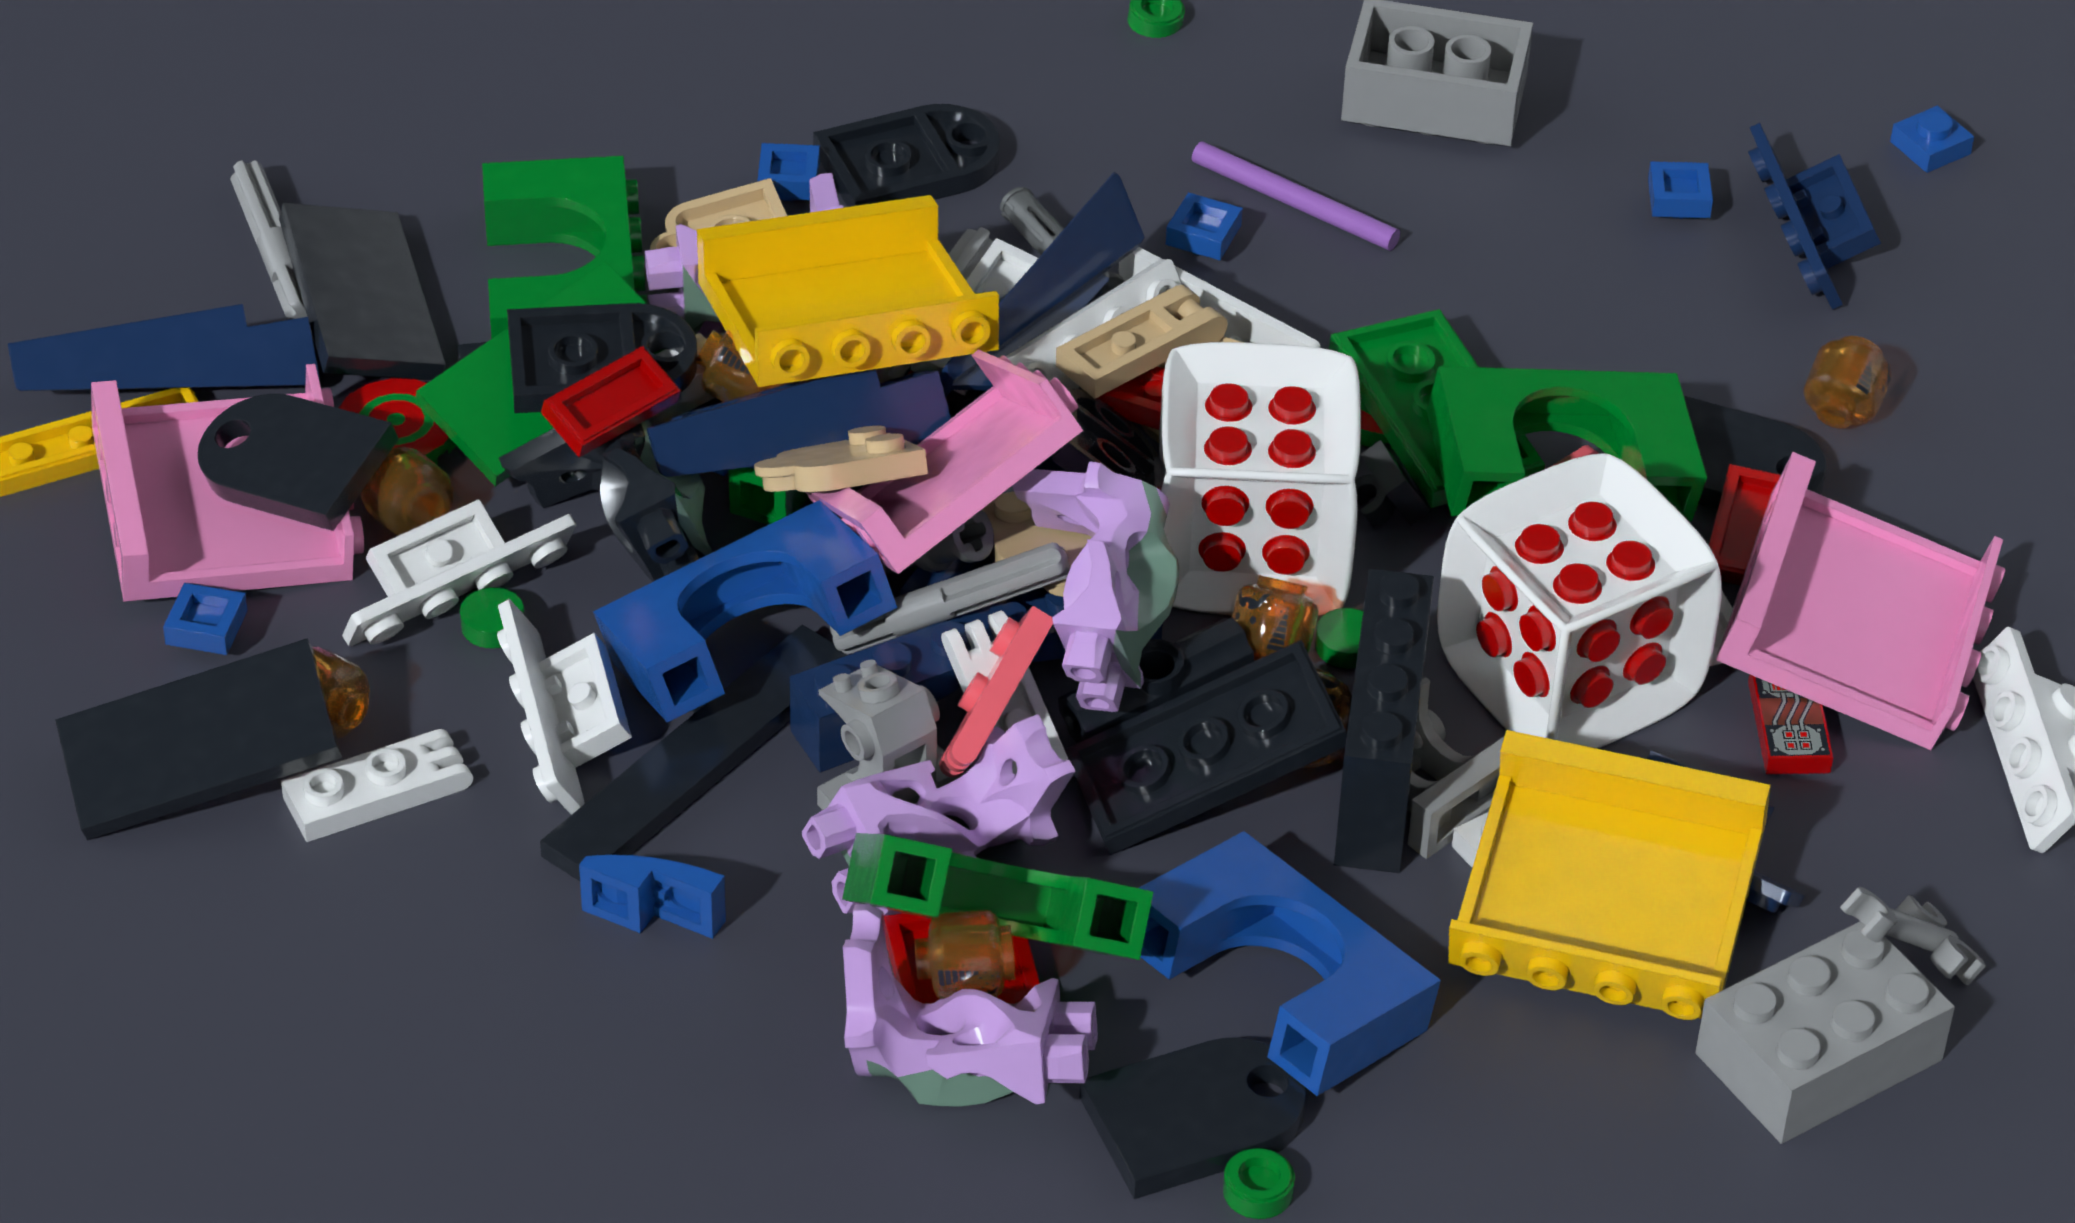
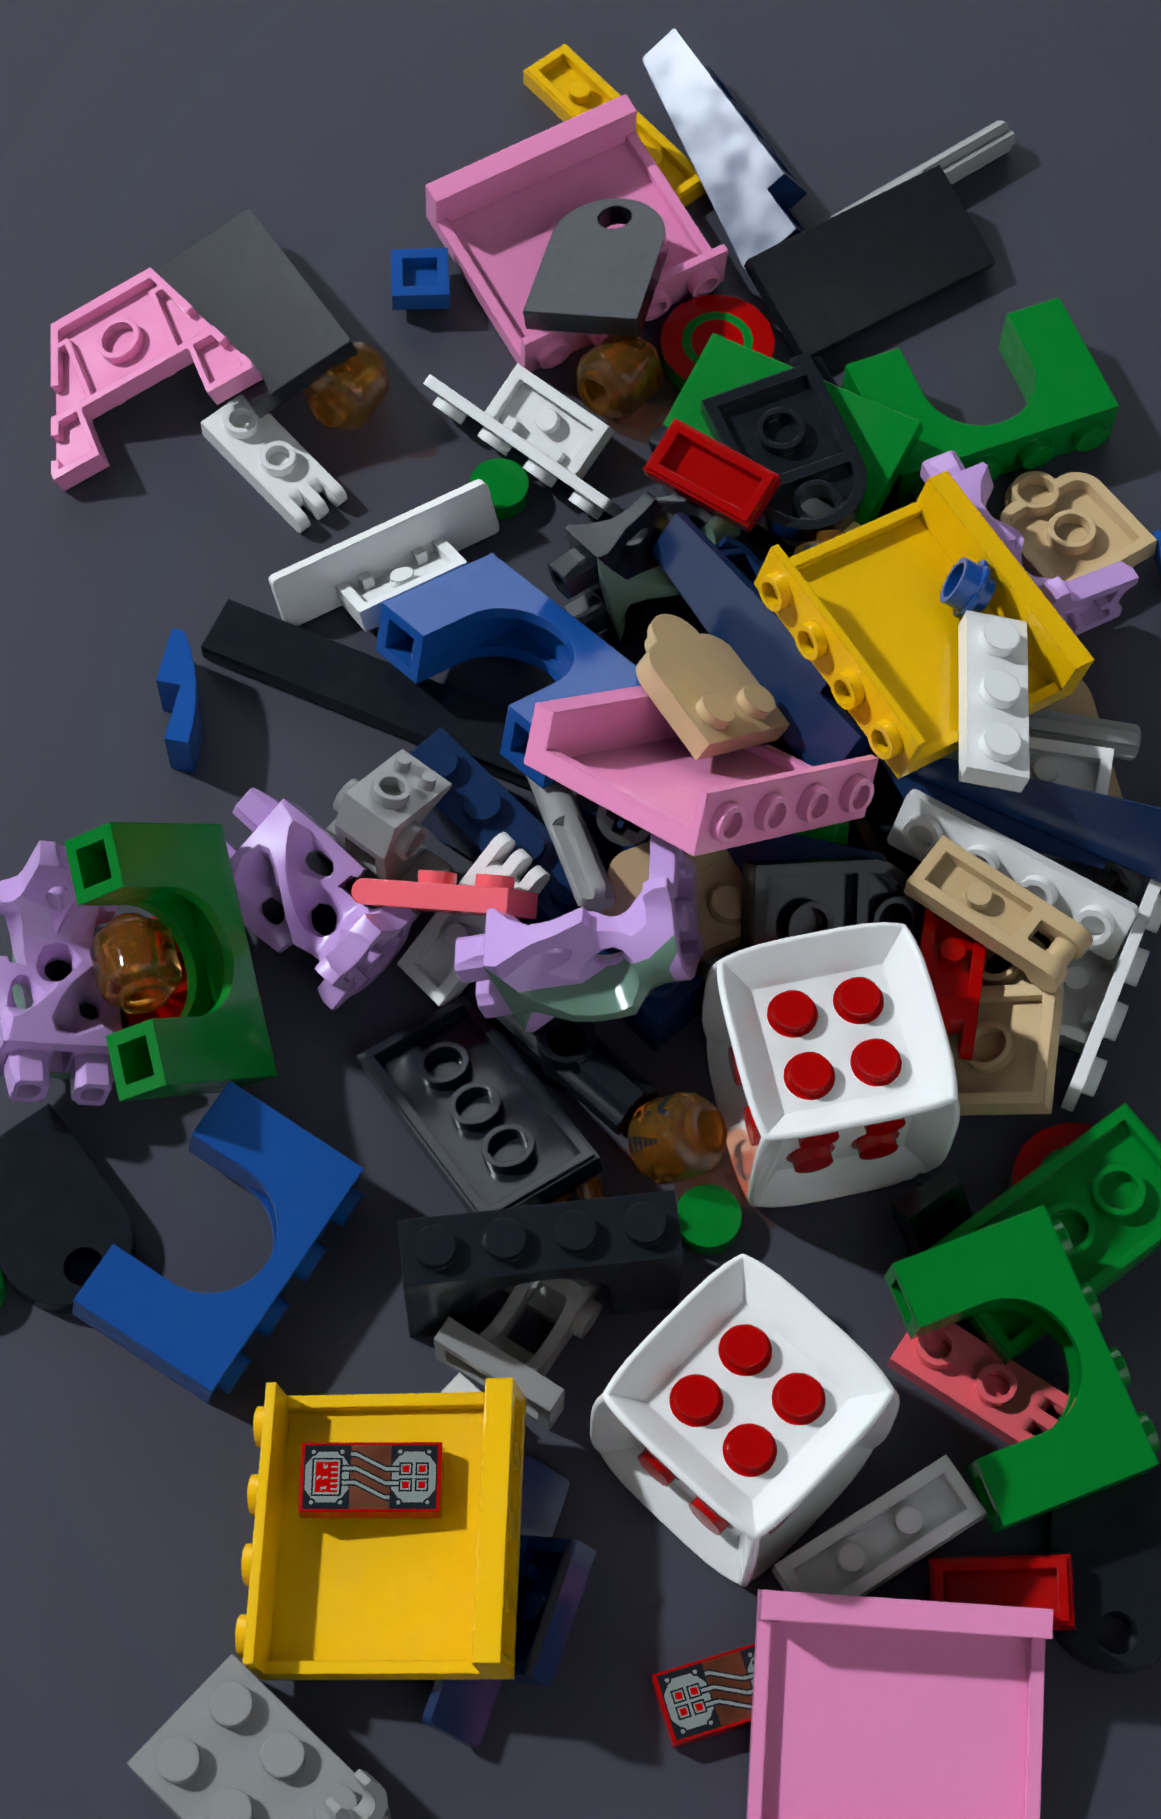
camera: 75 degrees right, 20 degrees up
(184, 856) = (119, 350): none -> bright pink wing
(809, 258) = (968, 587): none -> blue plate
(946, 264) = (993, 701): none -> white plate
(1560, 878) = (371, 1480): none -> tile

